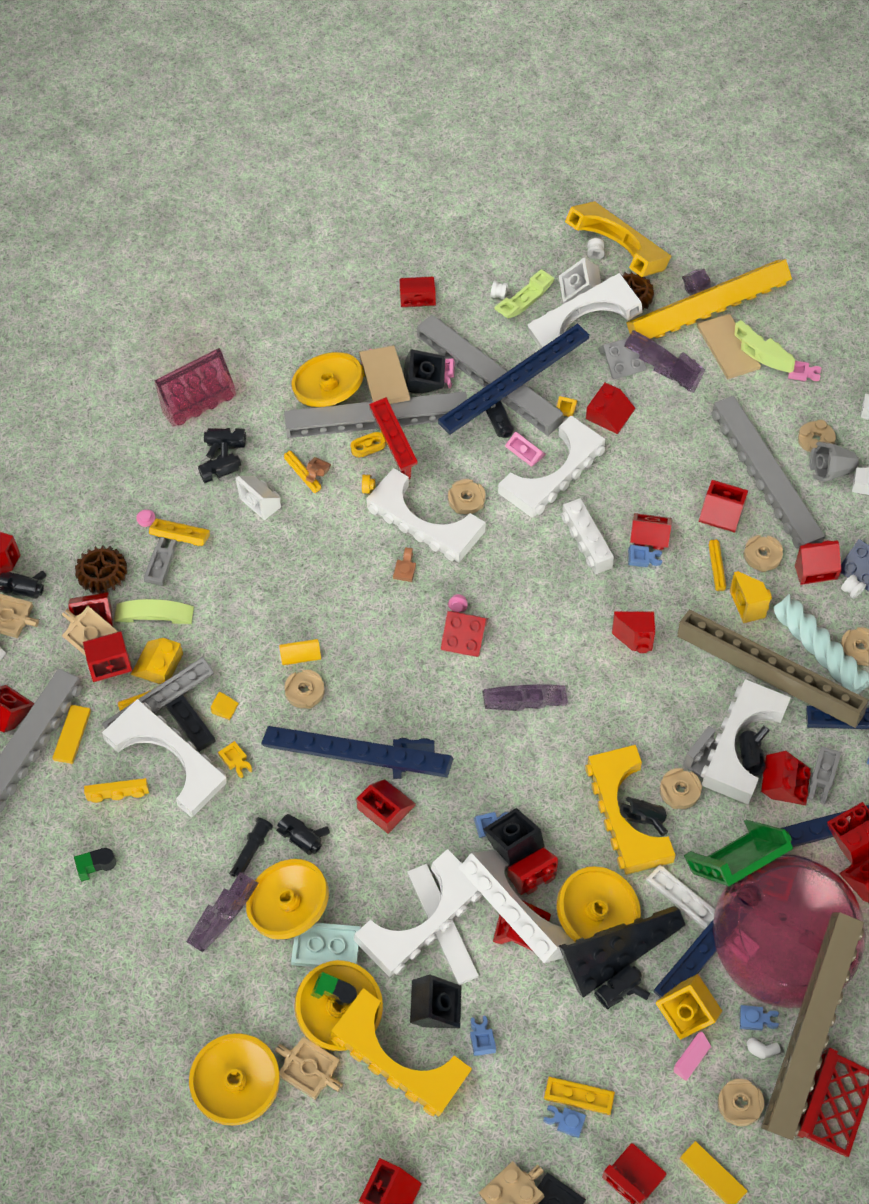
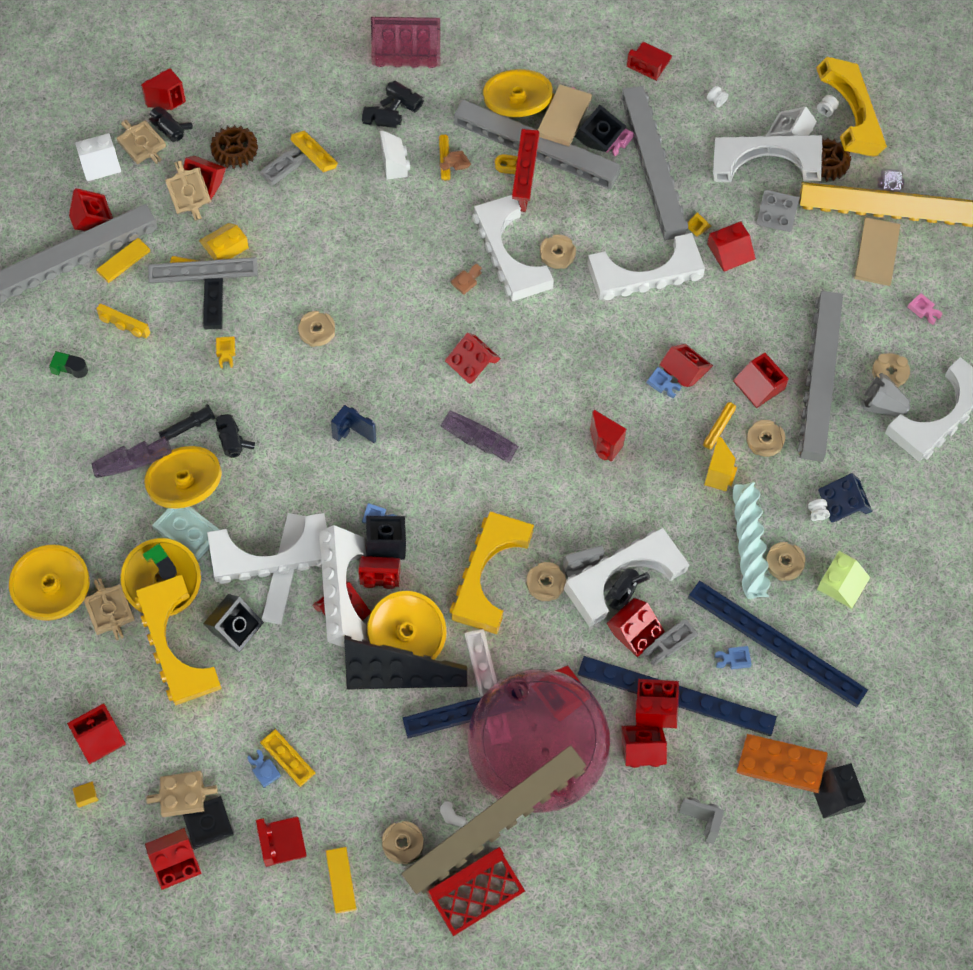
camera: 30 degrees right, 5 degrees up
(107, 656) = (187, 216): red slope -> none
(141, 725) = (171, 282): white arch -> none
(145, 518) = (297, 125): bright pink plate -> none
(154, 610) = (251, 202): yellowish green slope -> none
(223, 706) = (247, 305): yellow slope -> none
(300, 652) = (334, 298): yellow slope -> none
(358, 751) = (313, 398): dark blue plate -> none
(368, 484) = (484, 194): yellow plate -> none
(384, 804) = (309, 451): red slope -> none
(458, 603) = (484, 332): bright pink plate -> none
(482, 1039) = (248, 670): medium blue plate -> none
(500, 420) = (633, 202): black piece -> none
(513, 379) = (666, 175): dark blue plate -> none
(524, 449) = (636, 240): bright pink slope -> none
(528, 295) = (733, 115): yellowish green slope -> none
(587, 536) = (629, 338): white brick -> none
(620, 985) = (383, 698): black piece -> none
(644, 813) = (499, 581): black piece -> none
(652, 353) = (806, 228): clear purple slope -> none
(687, 372) = (822, 253): clear purple piece -> none
(689, 1007) = (417, 747): yellow slope -> none
(692, 1056) = (393, 784): bright pink slope -> none
(742, 856) = (543, 659): green panel -> none
(753, 1018) = (464, 788): medium blue plate -> none
(766, 352) = (900, 271): yellowish green slope -> none
(773, 668) = (692, 533): dark tan brick -> none
(818, 562) = (802, 472): slope -> none

